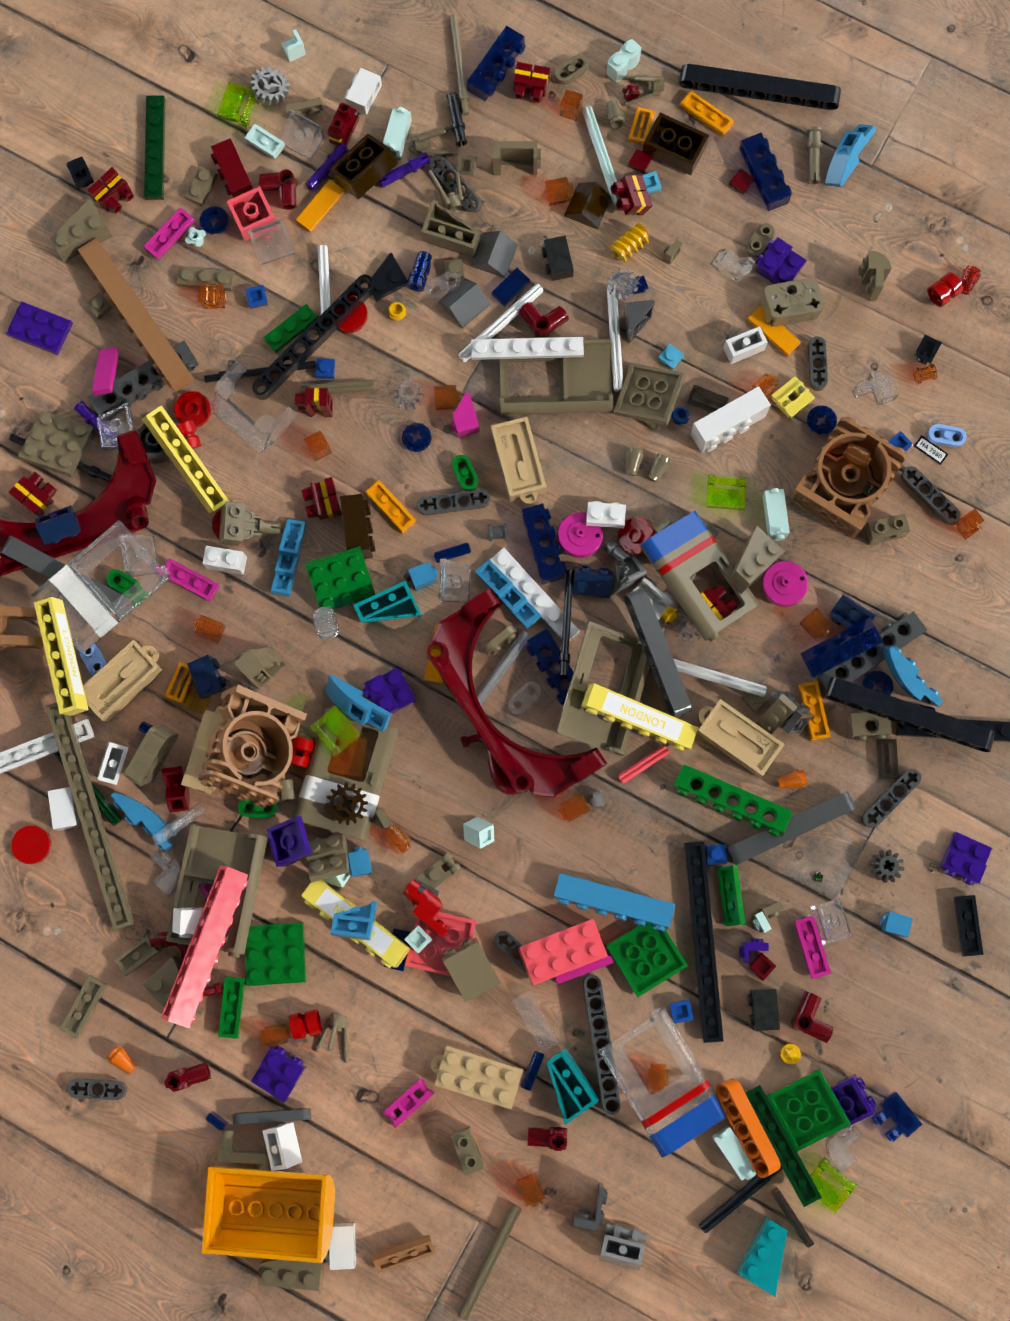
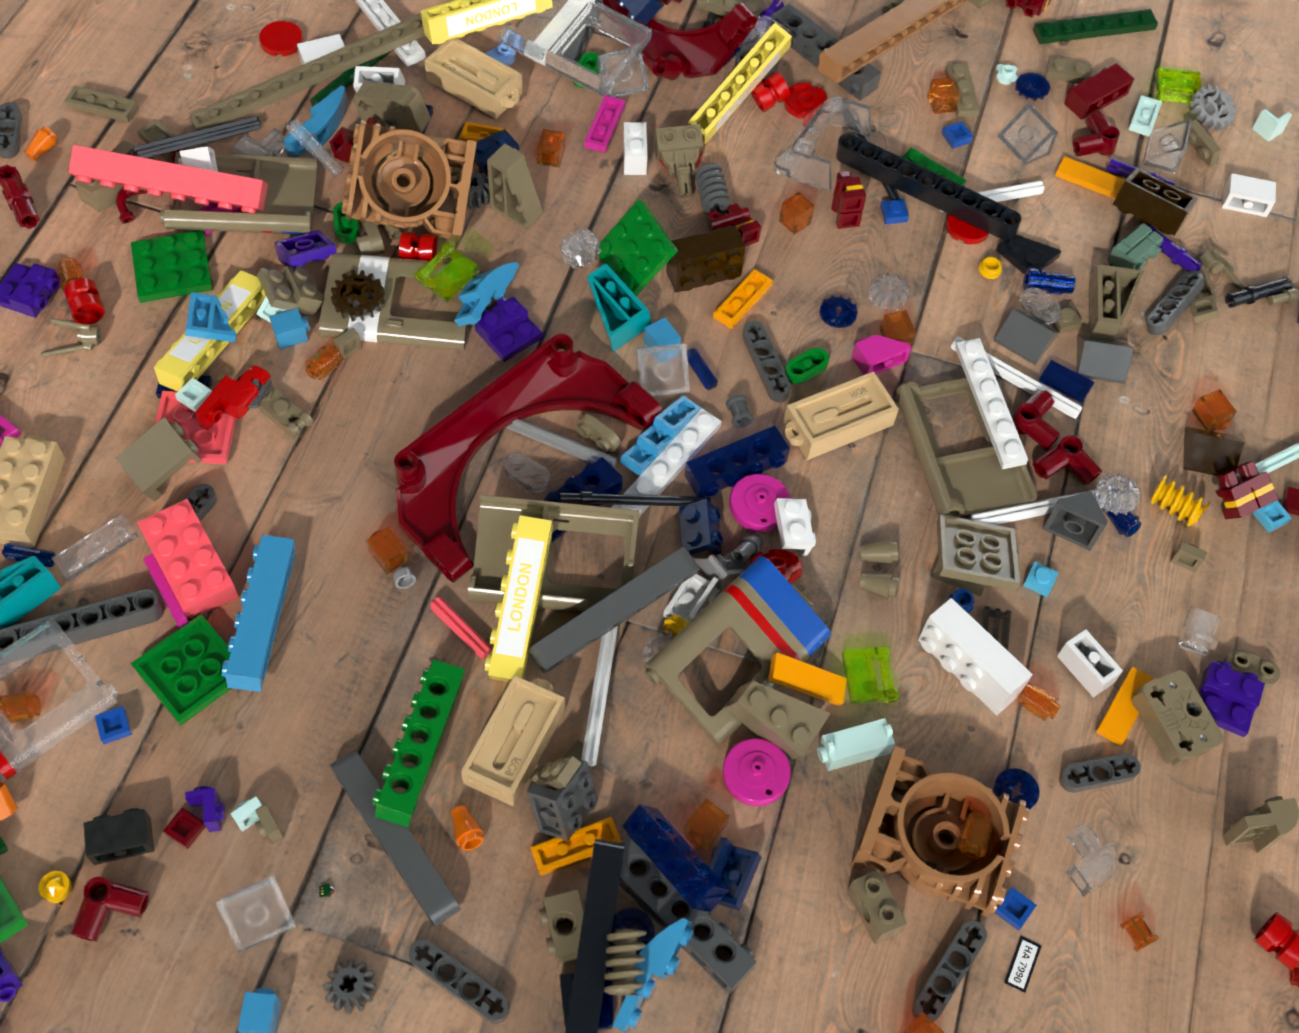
camera: 70 degrees right, 20 degrees down
(105, 371) = (822, 15): dark pink tile -> none
(148, 923) = (196, 138): none -> black axle
(169, 233) = (1001, 50): dark pink plate -> none
(231, 1007) = (104, 232): green plate -> none
(250, 211) = (1058, 107): coral brick -> none
(281, 507) = (712, 188): none -> dark grey piece
(288, 557) = (664, 206): dark azure slope -> none
(342, 125) = (1199, 178): dark red hips -> none
(343, 387) = (877, 231): dark tan axle -> none
(350, 760) = (417, 300): clear orange plate -> none
(397, 131) = (1212, 233): light aqua brick -> none
(401, 196) = (1136, 248): none -> sand green brick
(451, 200) = (1153, 299): dark tan plant -> none
(478, 832) = (341, 447): light aqua panel -> none
(516, 154) = (1240, 348): dark tan panel -> none
(558, 258) = (1124, 424): pearl dark grey brick -> none
(579, 315) = (1078, 461): none -> dark red piece
(703, 942) = (212, 740): black plate -> none
(716, 854) = (343, 740): blue plate -> none
(721, 609) = (702, 676): dark red hips -> none
(726, 534) = (807, 679): none -> light orange tile
(731, 895) = (284, 766): green plate -> none
(802, 395) = (1051, 741): light yellow piece -> none
(812, 947) = (200, 899): dark pink plate -> none
(893, 742) = (520, 978): clear smoke tile -> none
(912, 688) = (624, 962): none -> dark tan piece
(927, 349) = (1177, 928): black bracket -> none
(945, 435) = (1052, 982): light blue plate -> none

